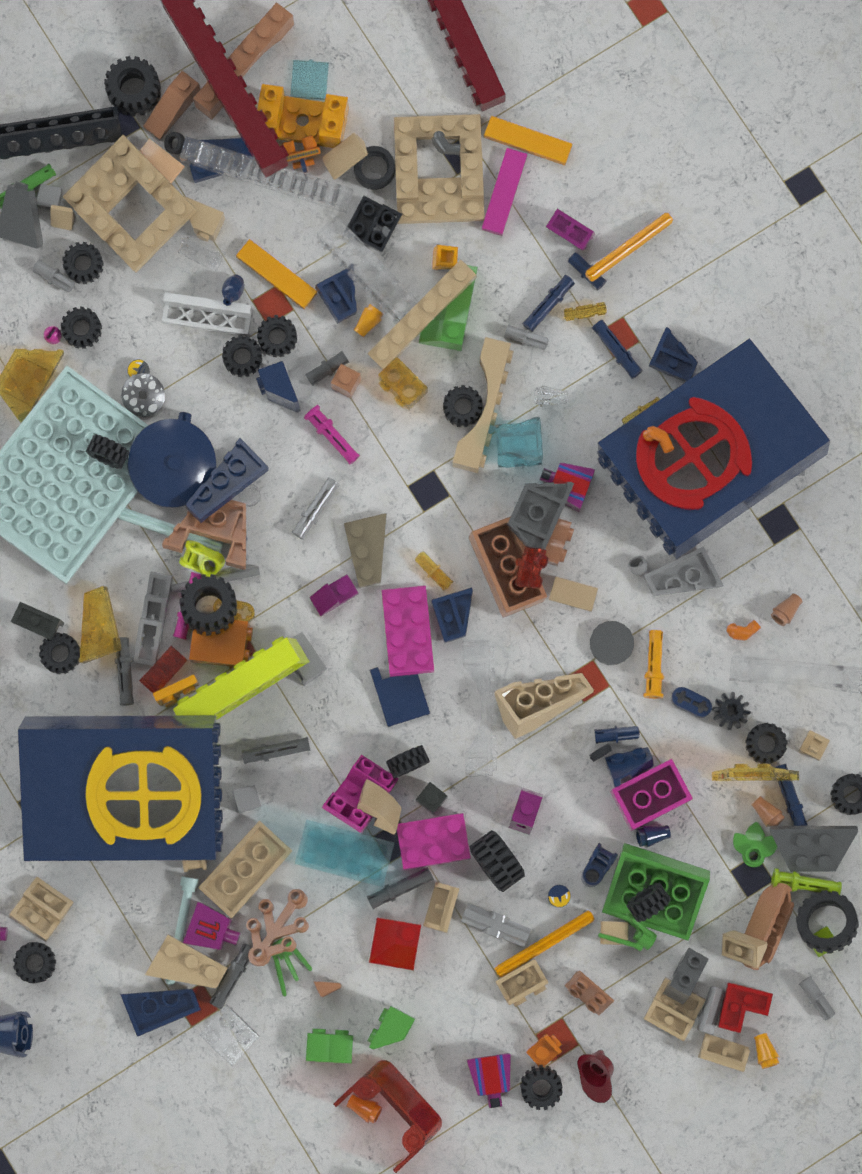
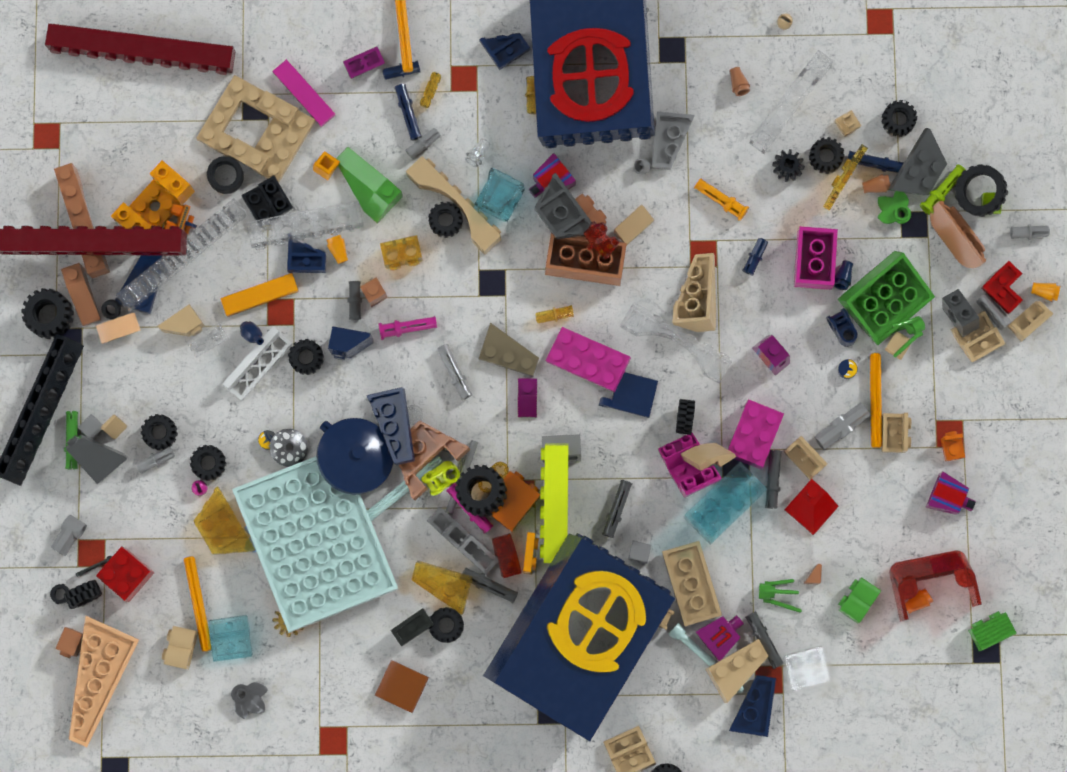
camera: 55 degrees left, 0 degrees up
(107, 451) = (319, 496): black tyre -> none
(109, 183) = (111, 376): tan piece -> none
(276, 929) = (751, 587): nougat plant -> none
(277, 323) = (301, 312): black tyre -> none
(309, 79) = (126, 182): clear light blue piece -> none
(345, 155) = (203, 189): tan slope -> none
(393, 1028) = (874, 546): bright green slope -> none
(422, 314) = (361, 206): tan arch -> none
(431, 798) = (722, 416): pearl dark grey brick -> none
(443, 145) = (242, 114): dark grey arm -> none
(453, 614) = (595, 320): dark blue wing -> none
(497, 861) = (798, 395): black tyre -> none
(528, 140) = (276, 53): light orange tile -> none
(541, 1100) = (989, 464): black tyre -> none
(589, 993) = (931, 388): nougat hinge -> none
(596, 1075) = (994, 420): dark red piece -> none
(600, 752) = (762, 275): black piece -> none
(611, 643) = (686, 219): dark grey tile -> none
(620, 353) = (473, 84): dark blue pin -> none
(628, 763) = (783, 261): dark blue wing -> none
(648, 902) = (894, 305): black tyre -> none
(659, 435) = (563, 87): orange arm -> none
(689, 707) = (762, 186): dark blue beam -> none
(742, 633) = (736, 123): orange arm -> none
(743, 948) = (964, 260): tan slope -> none

